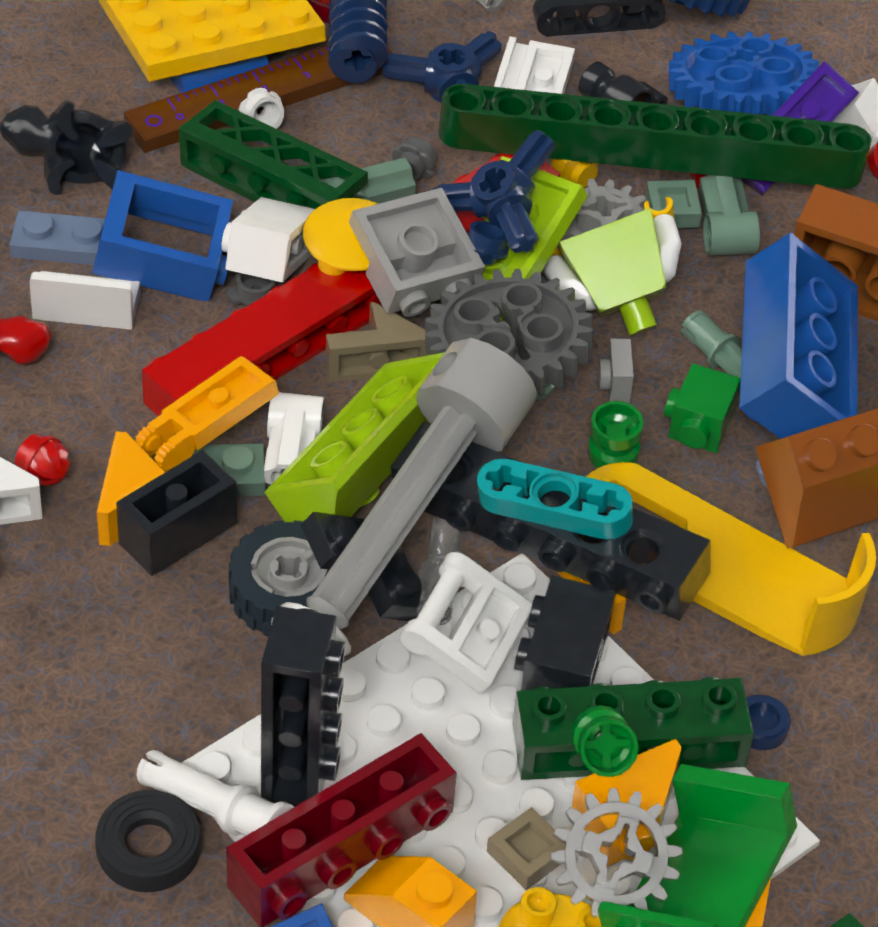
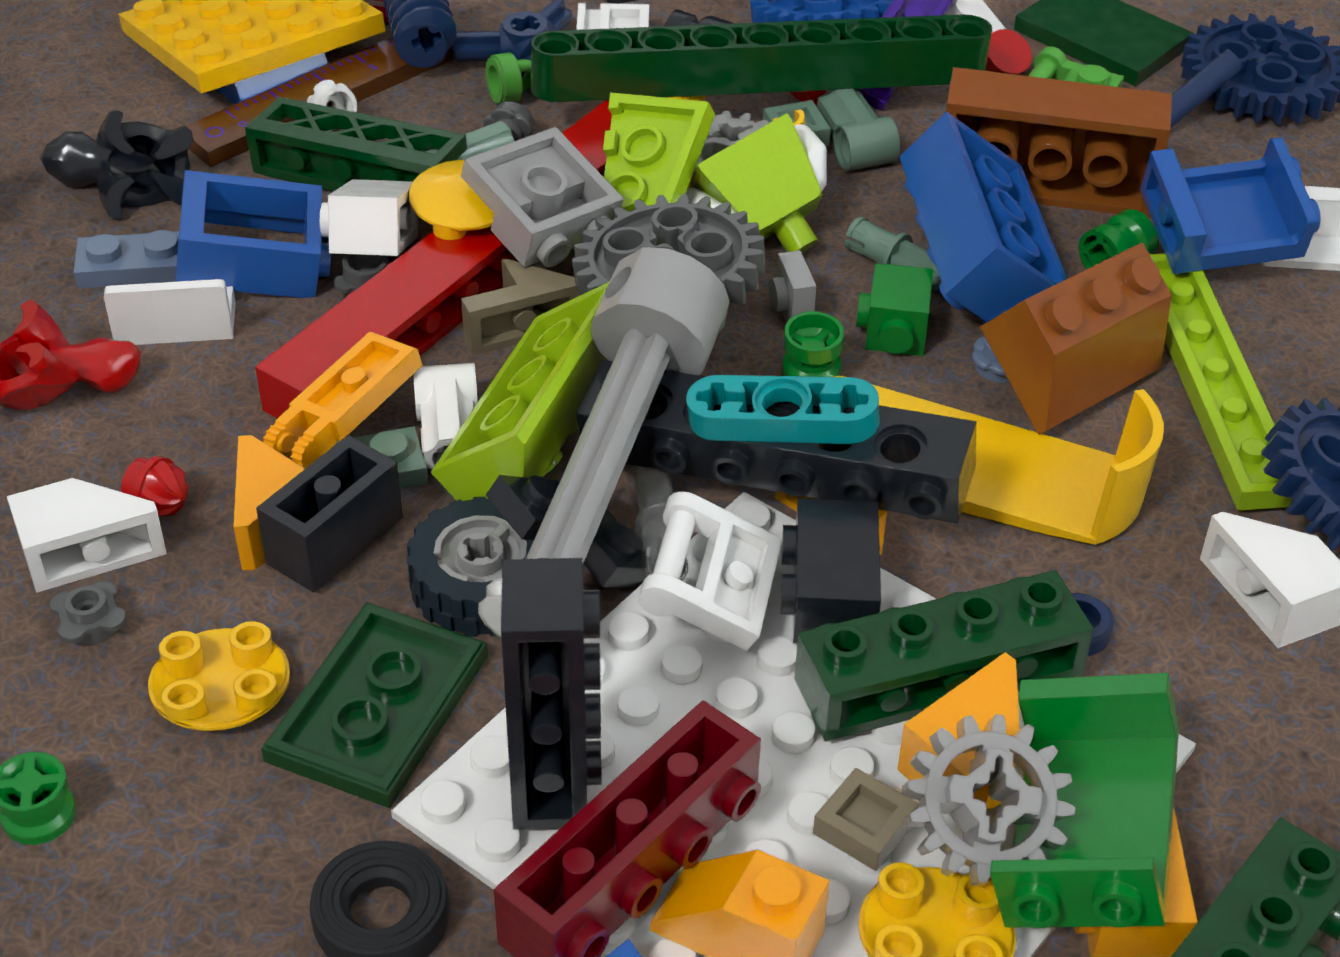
camera: 10 degrees left, 5 degrees down
(63, 633) = (218, 677): none -> yellow dish
(179, 678) = (375, 704): none -> dark green tile
(235, 807) = (485, 841): white pin -> none
(422, 108) = (505, 77): none -> bright green tile
(488, 241) = (621, 174): dark blue plate -> none
(503, 192) = (624, 120): dark blue bush -> none
(609, 752) = (944, 673): green wheel -> none

